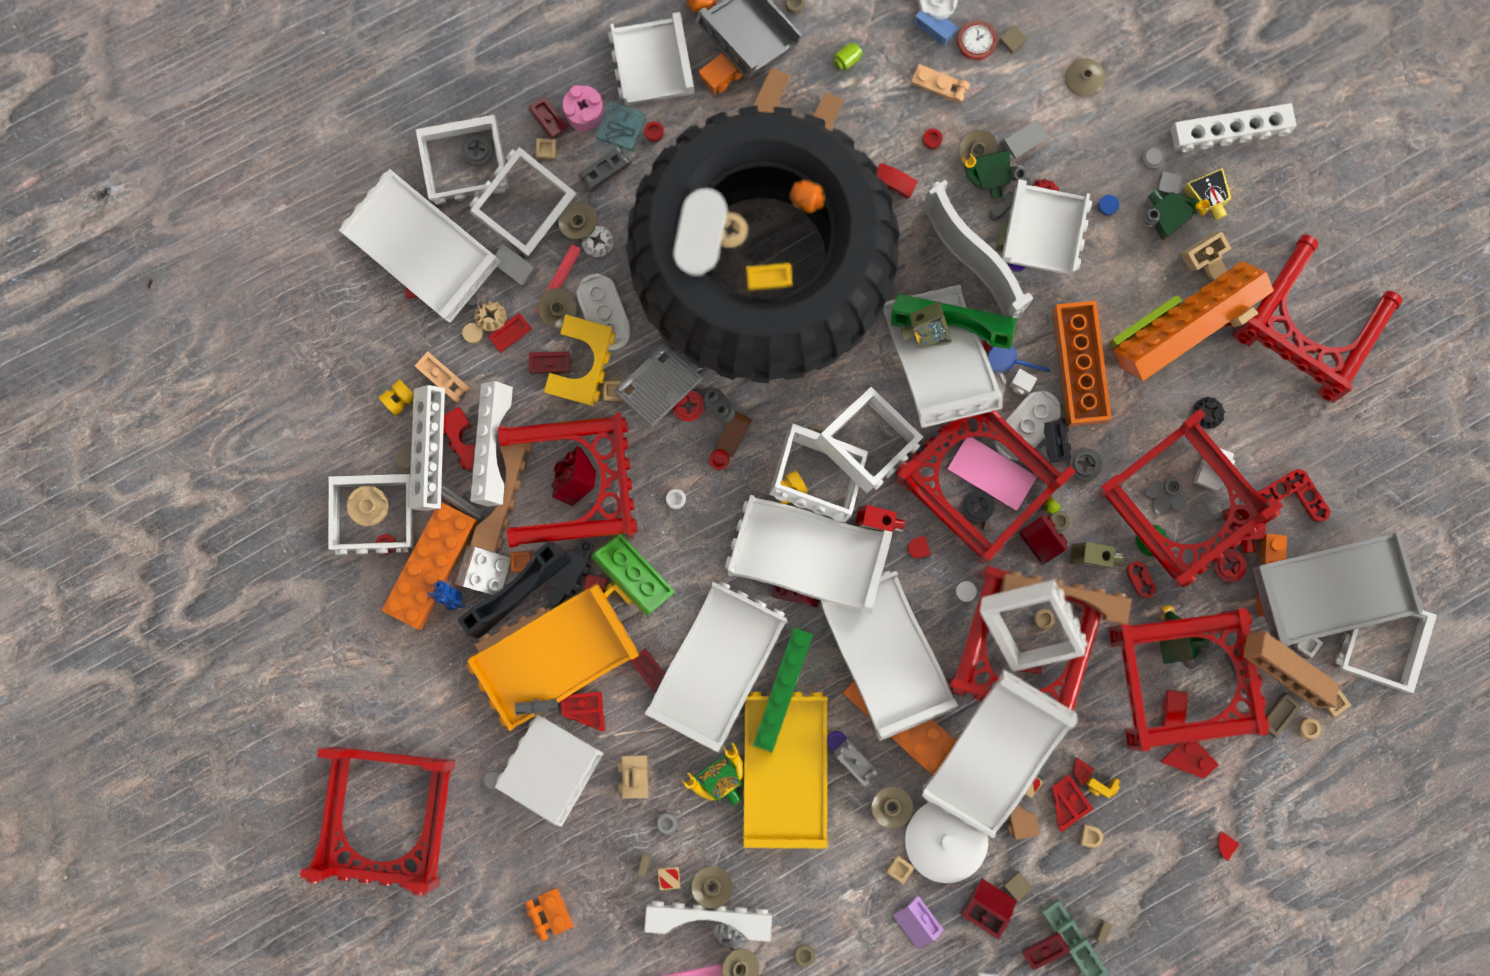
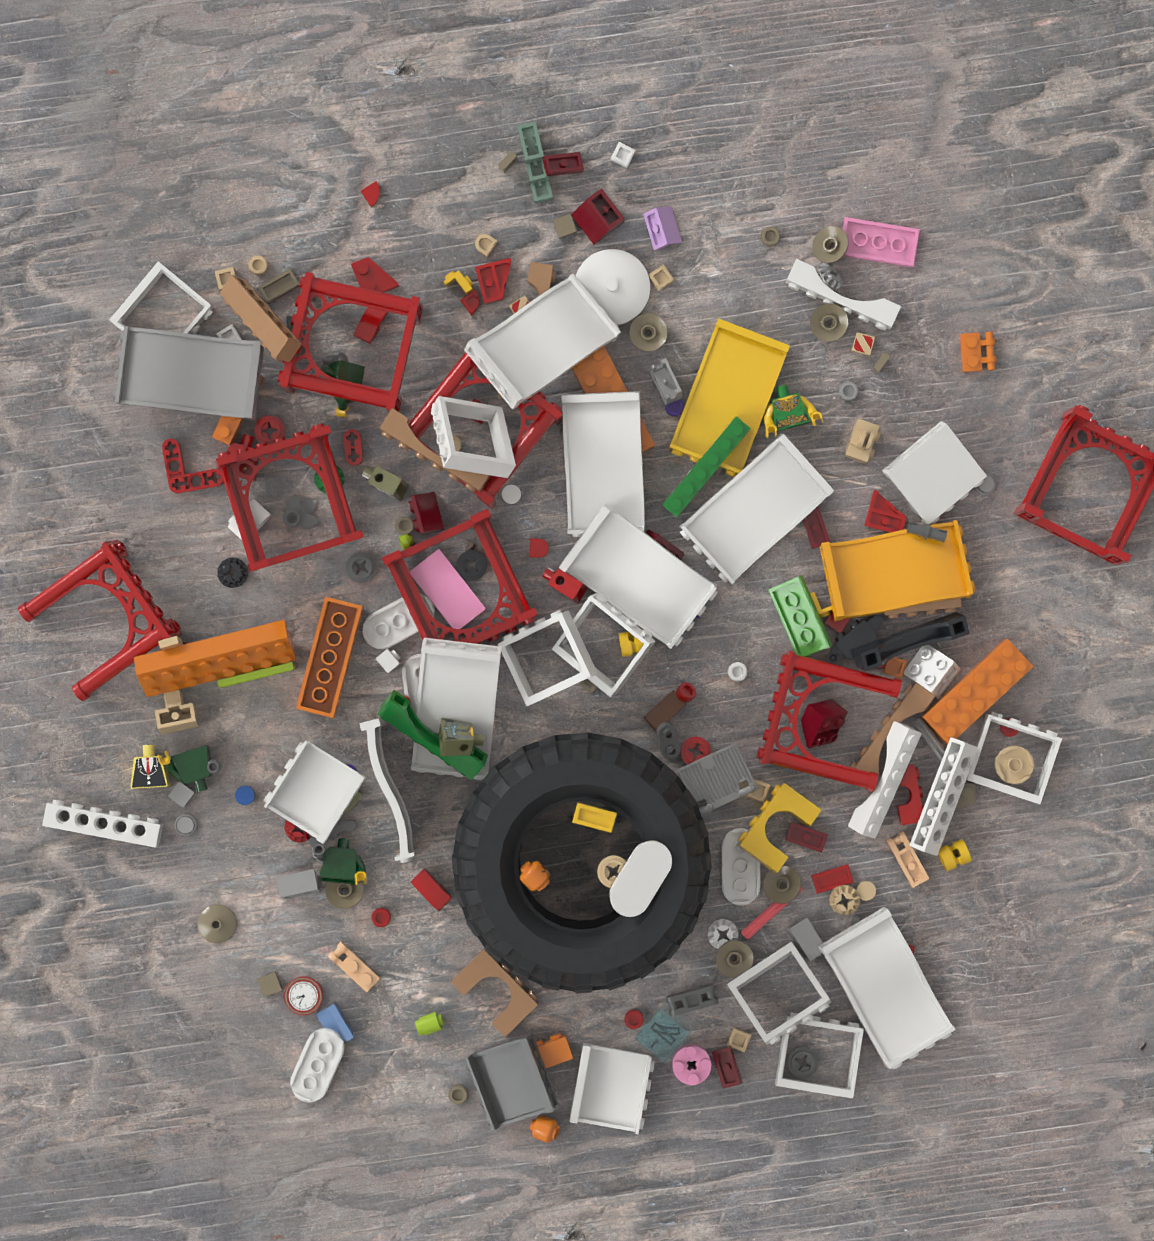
camera: 160 degrees left, 5 degrees up
(447, 596) = (971, 658): blue hinge -> none
(1004, 359) = (399, 684): blue piece -> none
(1057, 440) = (379, 596): black plate -> none

